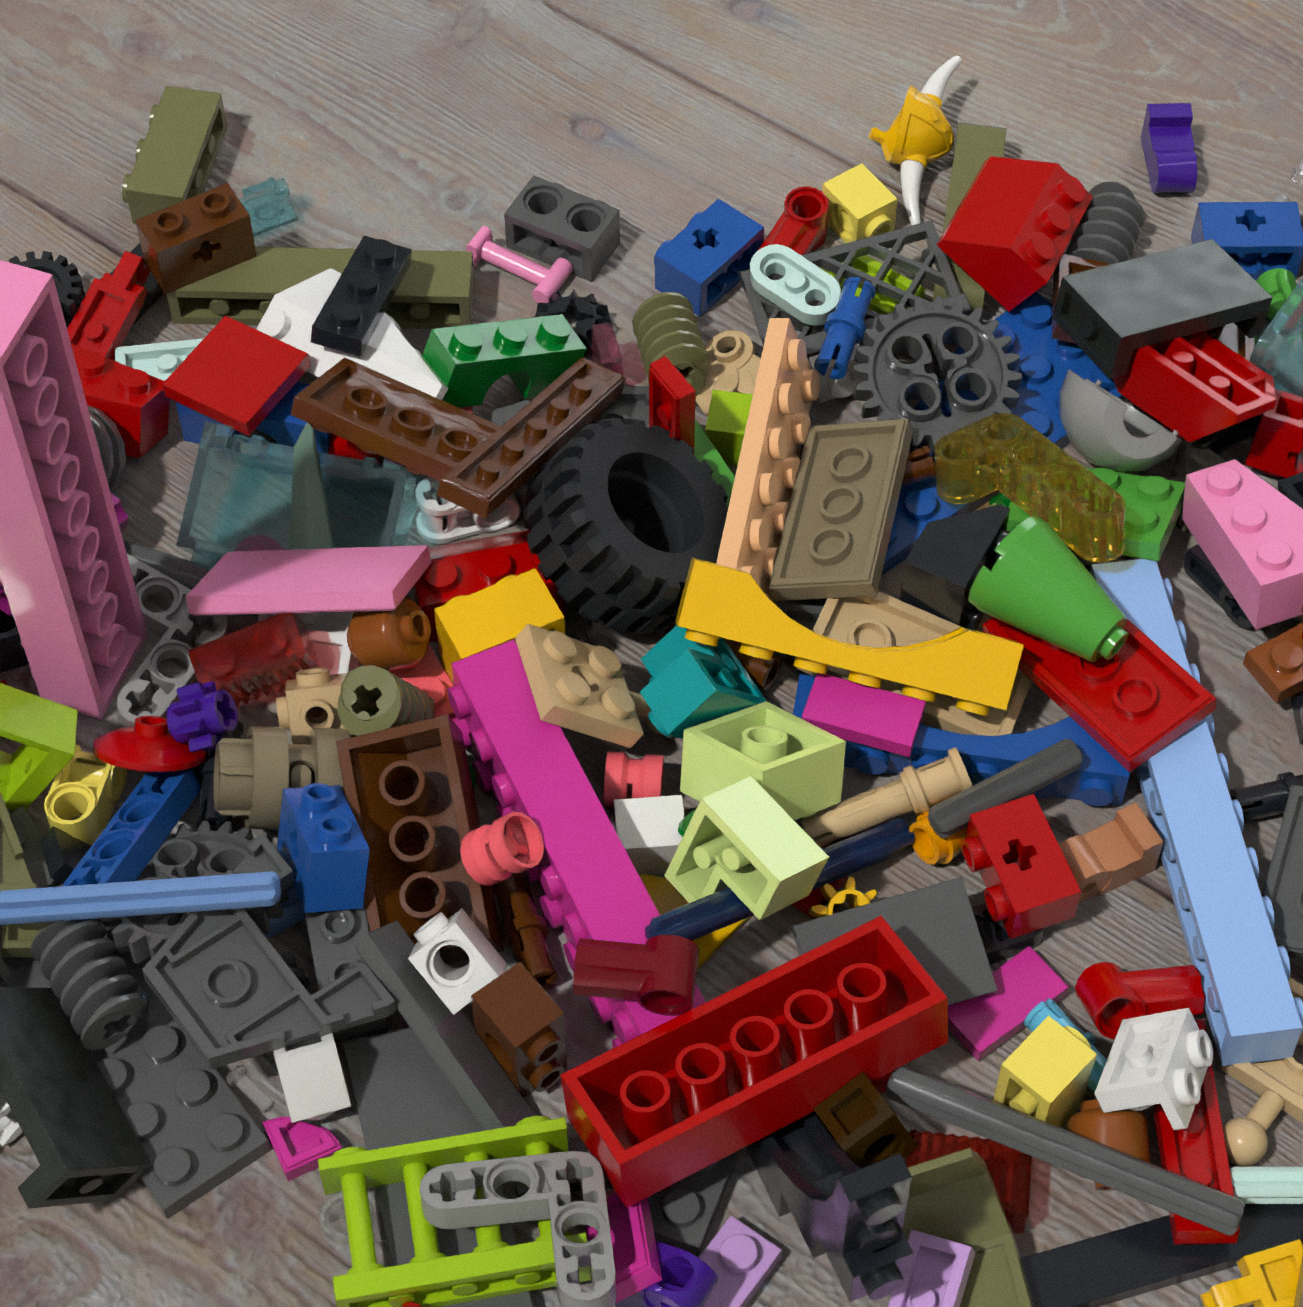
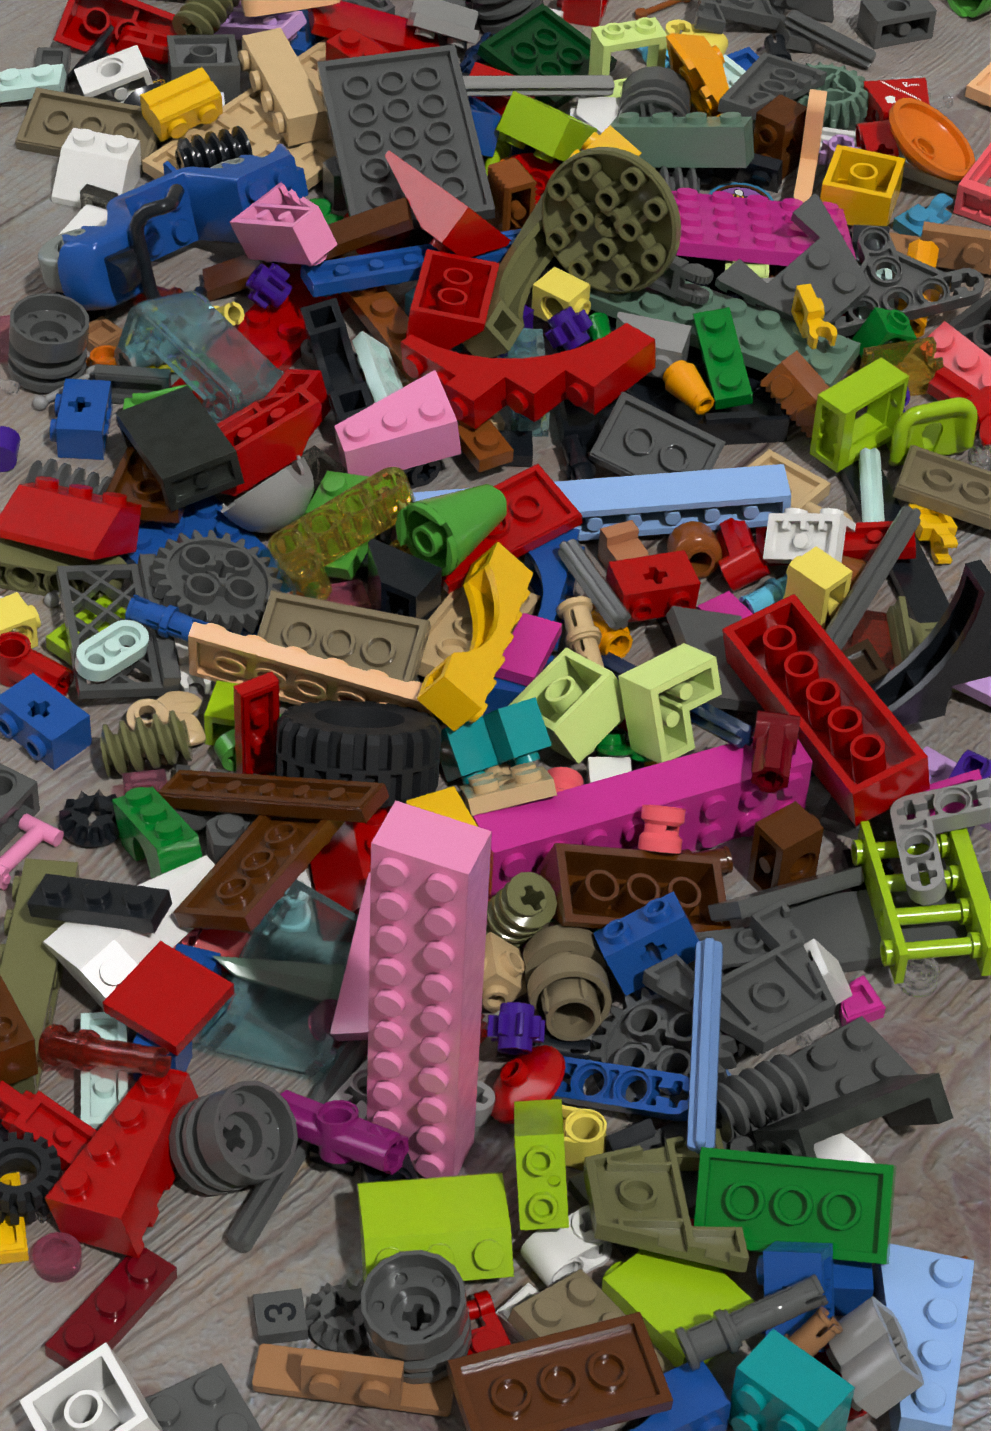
camera: 90 degrees left, 10 degrees down
(186, 329) = (88, 1050): none -> clear red pin
(455, 984) = (743, 869): white brick -> none
(1138, 935) = (699, 544): none -> dark orange head

